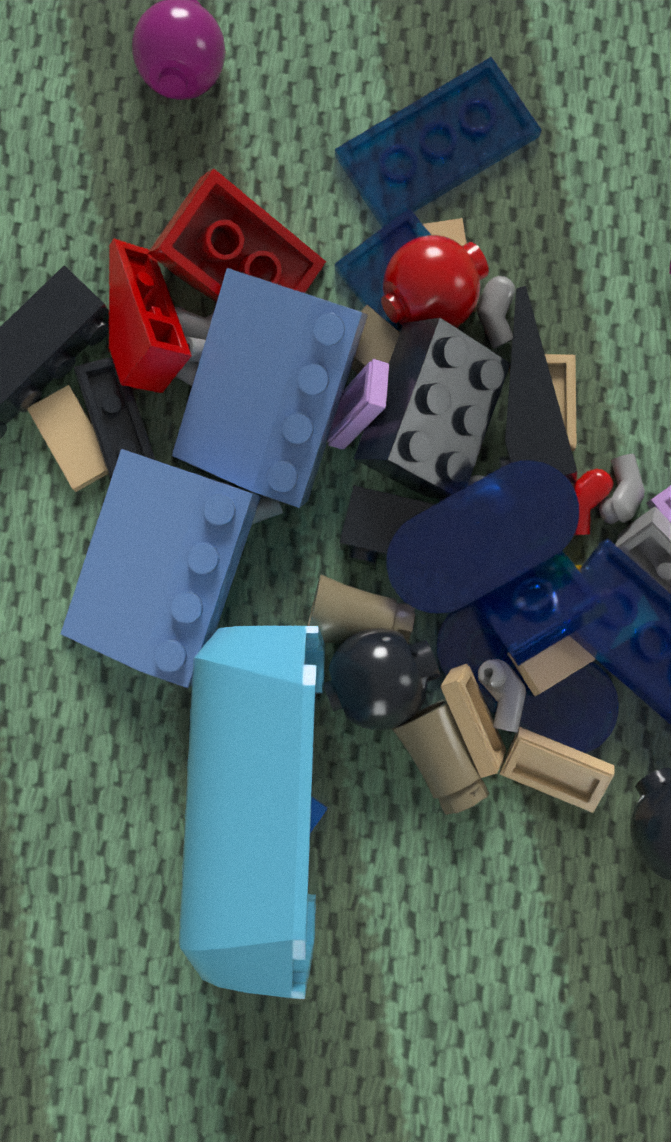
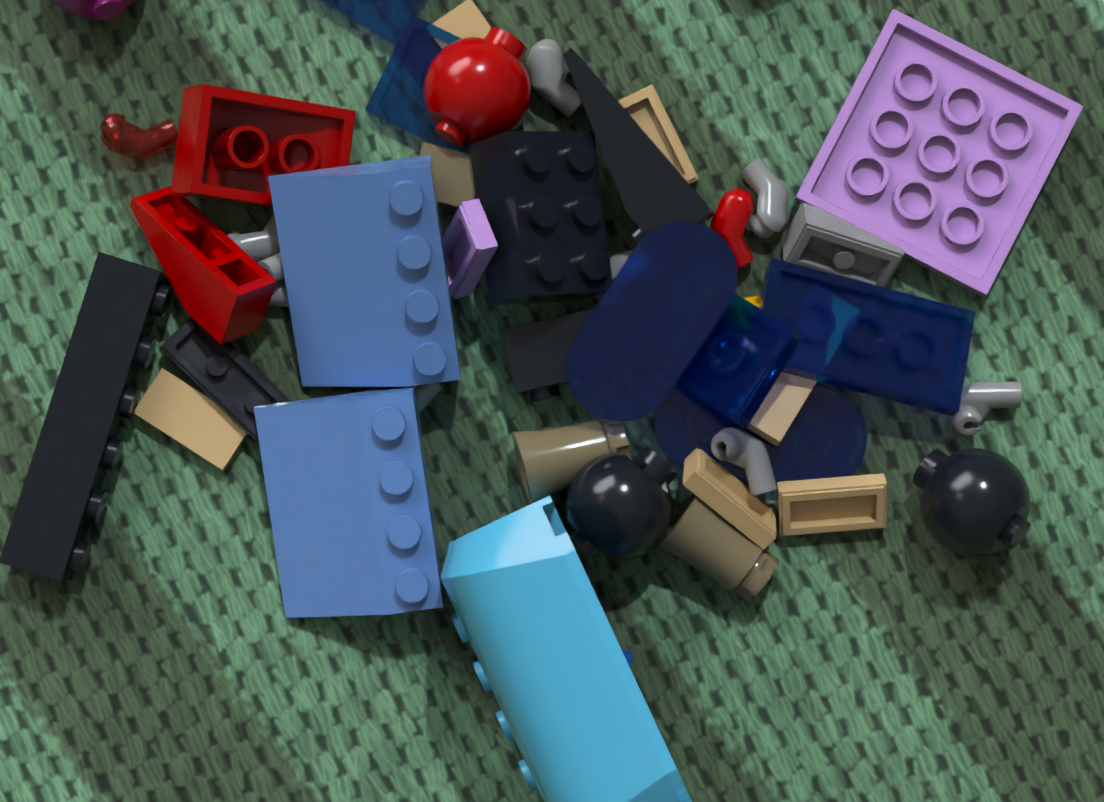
camera: 35 degrees left, 5 degrees up
(142, 202) = (134, 141): none -> clear red arm

